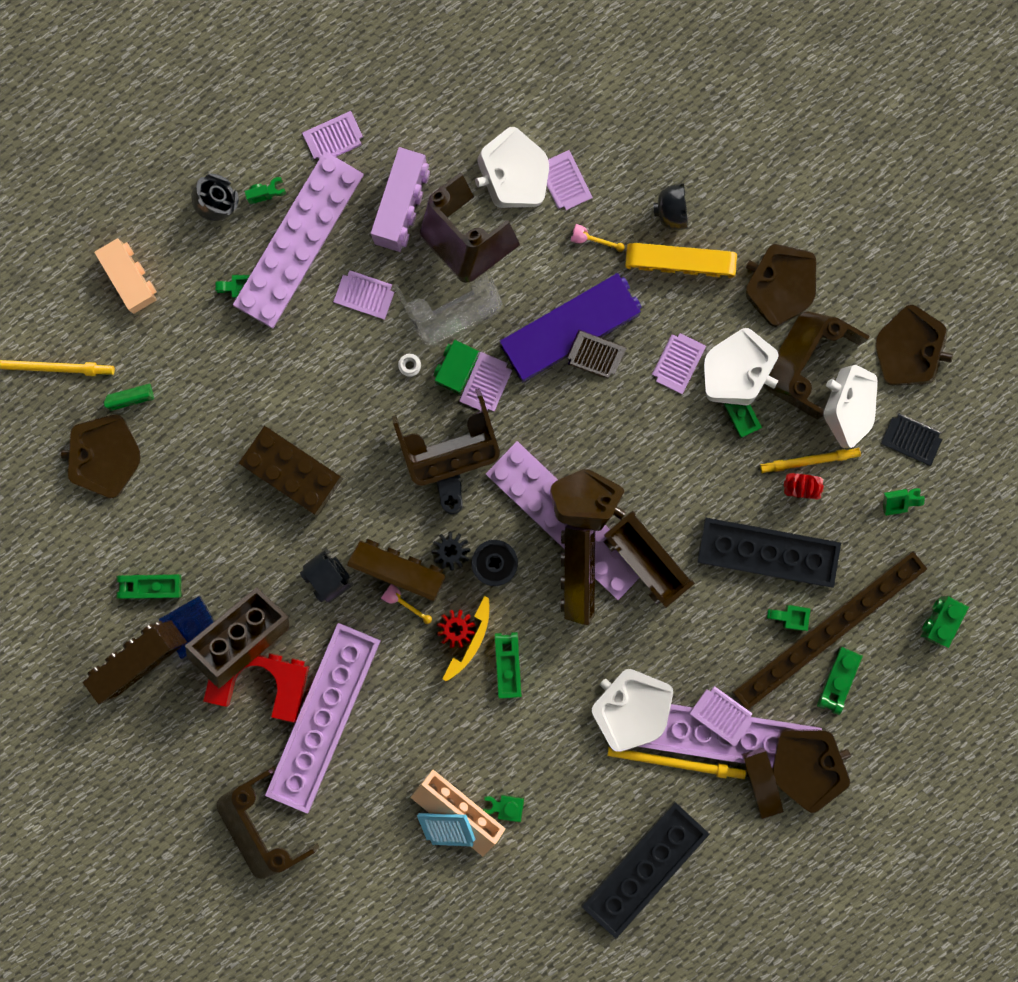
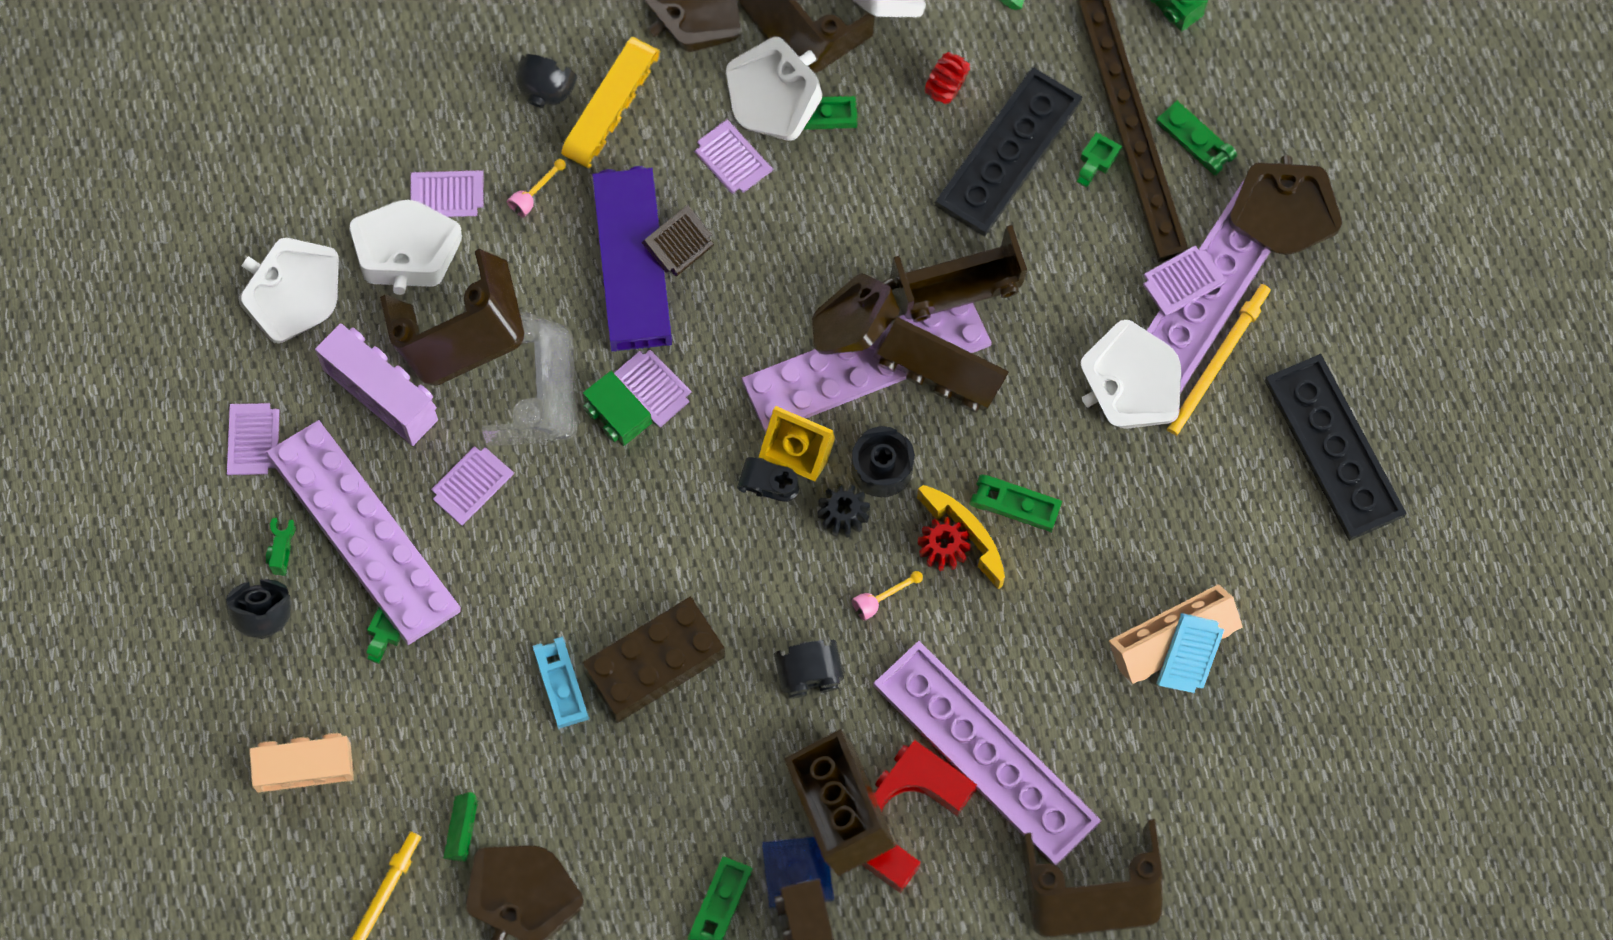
camera: 65 degrees left, 15 degrees down
(252, 416) = (561, 683): none -> medium azure plate
(397, 570) = (840, 581): dark brown slope -> none
(402, 365) = (586, 456): white plate -> none
(448, 111) = (291, 288): none -> white animal
(451, 456) = (728, 452): dark brown windscreen -> none
(480, 500) = (797, 443): none -> yellow slope
(509, 807) = (1193, 577): green plate -> none
(762, 782) = (1282, 268): dark brown slope -> none
(838, 455) = (927, 30): yellow piece -> none

